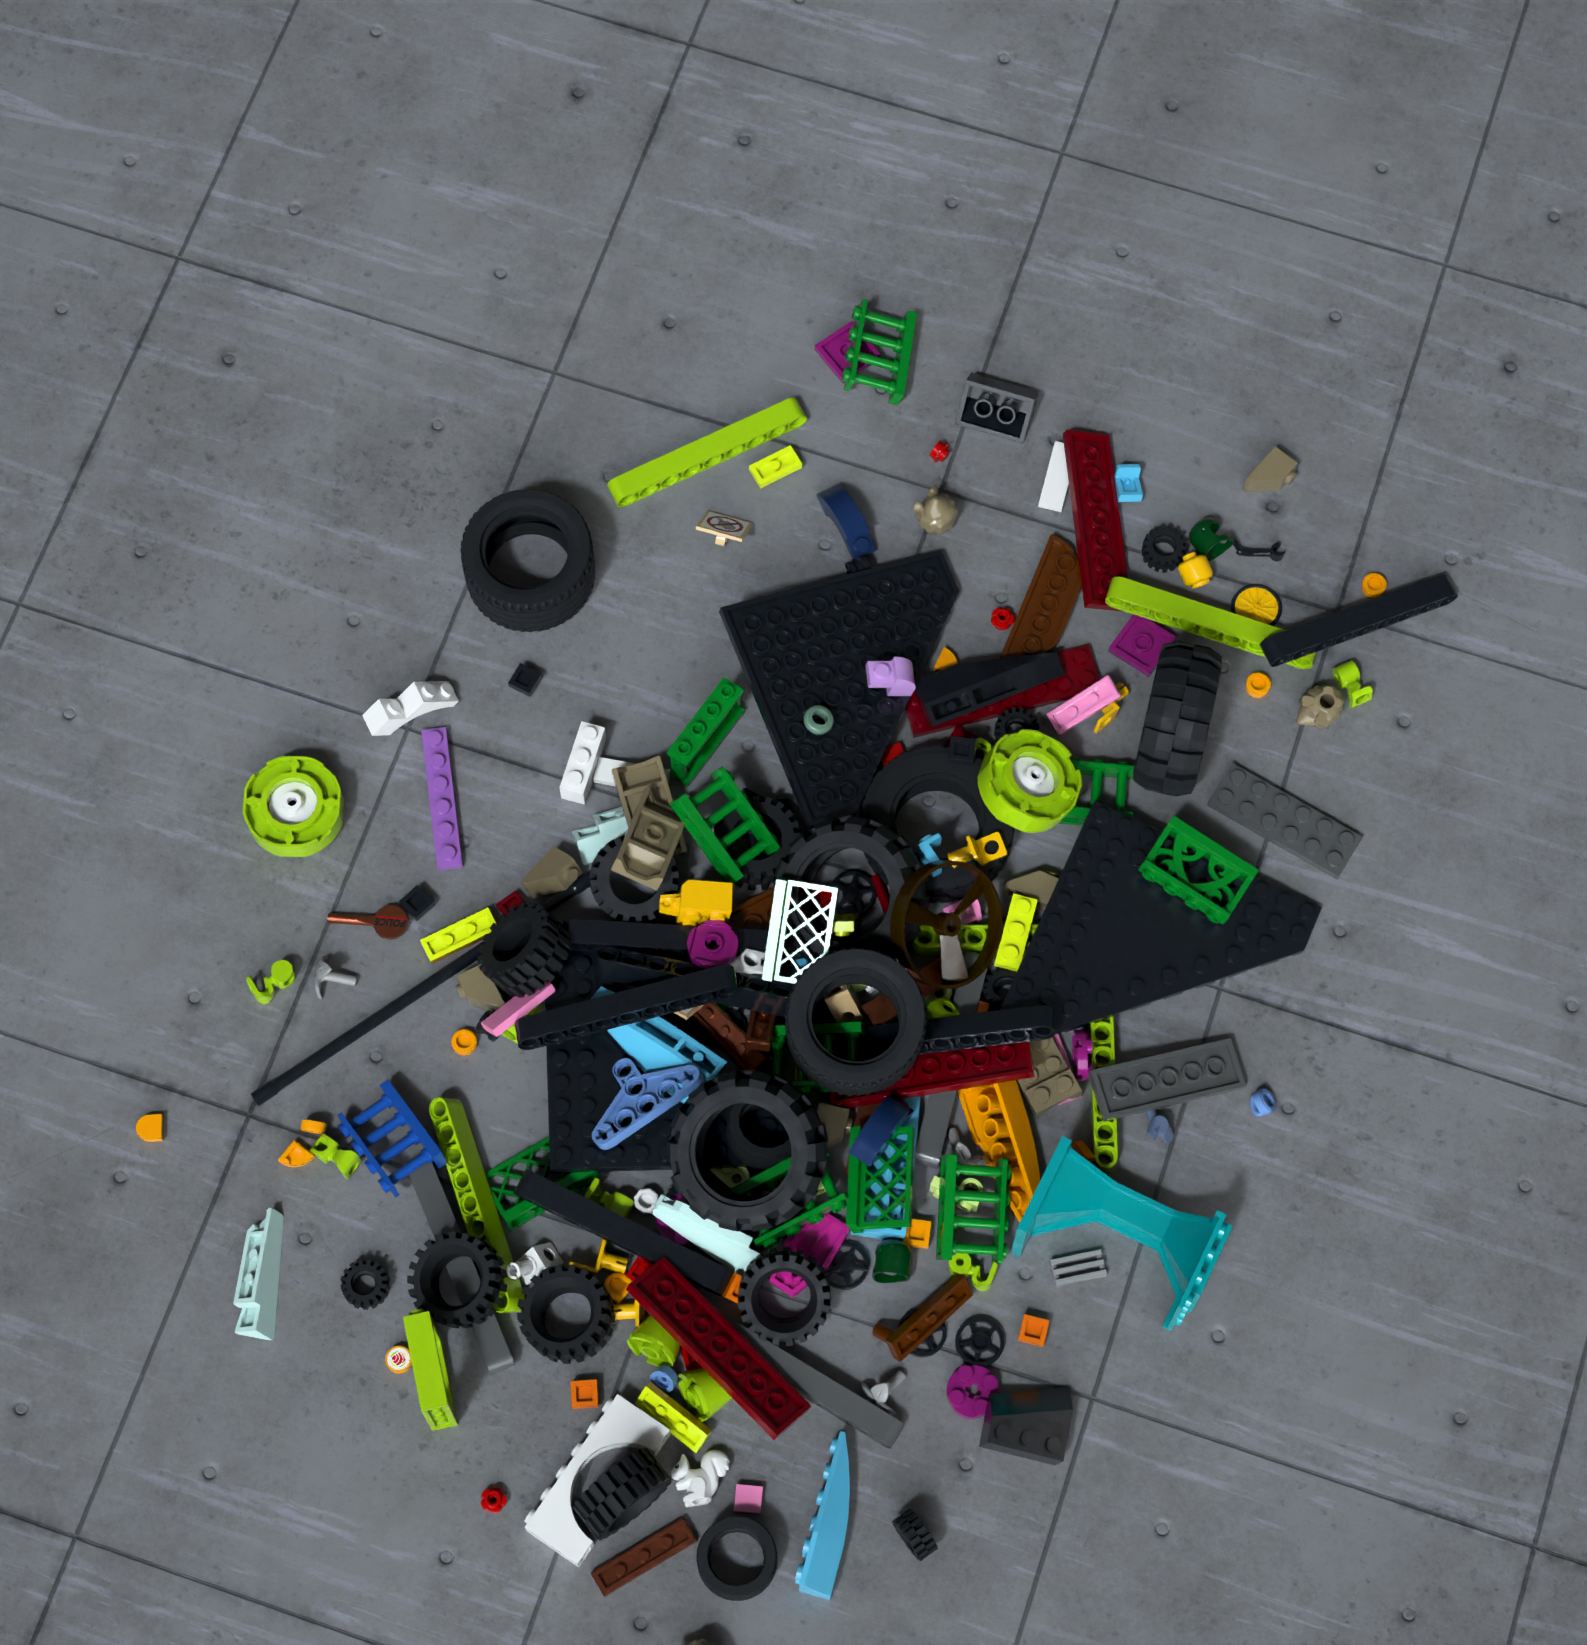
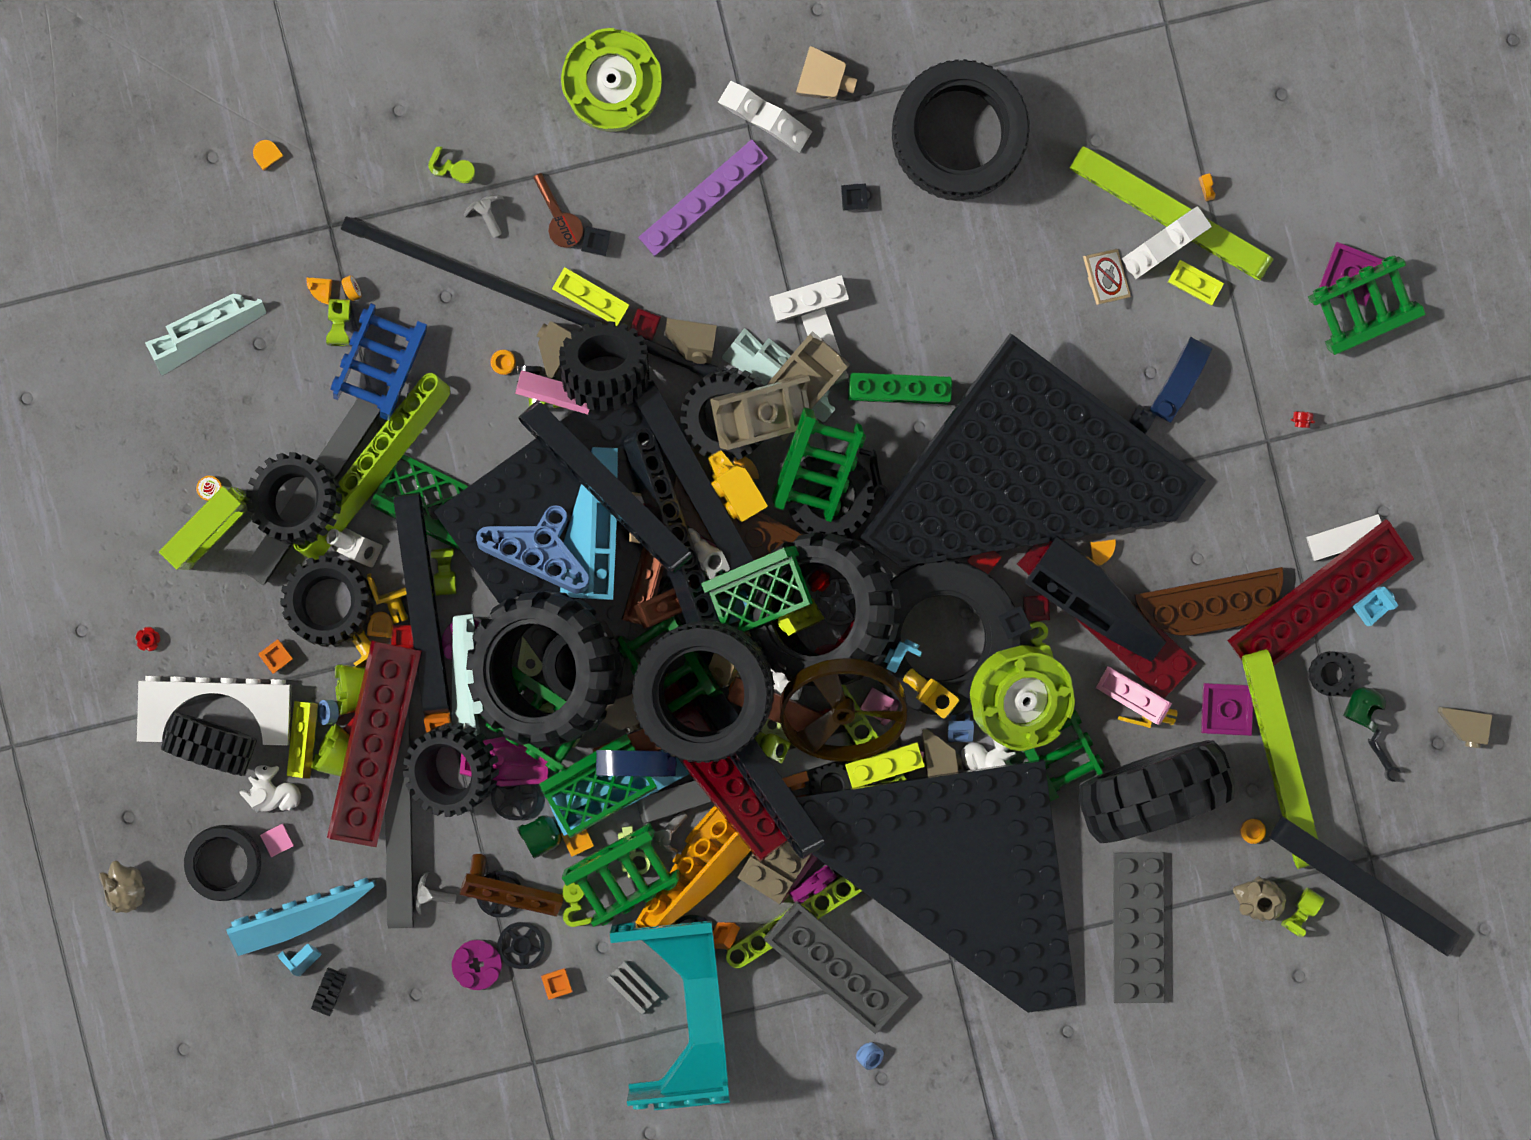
camera: 60 degrees right, 20 degrees up
(376, 1295) = (239, 409): black tyre -> none
(410, 644) = (823, 76): none -> tan torso
(643, 1557) = (180, 786): copper tile -> none
(645, 1201) = (464, 602): white tile -> none
(703, 415) = (1206, 184): none -> light orange tile
(704, 934) = (693, 516): magenta plate -> none
(728, 464) = (1166, 242): none -> white arch
(822, 711) = (955, 476): sand green piece -> none
(871, 1545) = (301, 960): none -> medium azure tile
(893, 675) = (1044, 519): lavender brick -> none
(936, 512) = (1236, 455): dark tan animal -> none
(996, 407) = (1378, 442): black slope -> none
(1002, 624) = (1176, 579): red plate -> none
(1014, 717) = (1086, 639): black tyre -> none
(1025, 859) = (960, 730): none -> medium blue tile
(1028, 1424) = (477, 1027): black wedge -> none
(1055, 859) = (976, 756): none -> white animal
(1159, 1125) = (796, 983): sand blue piece -> none
(1195, 570) = (1325, 715): yellow head -> none
(1233, 868) = (1057, 912): green fence -> none
(1257, 604) = (1328, 786): yellow wheel -> none
(1373, 585) = (1414, 876): light orange tile -> none

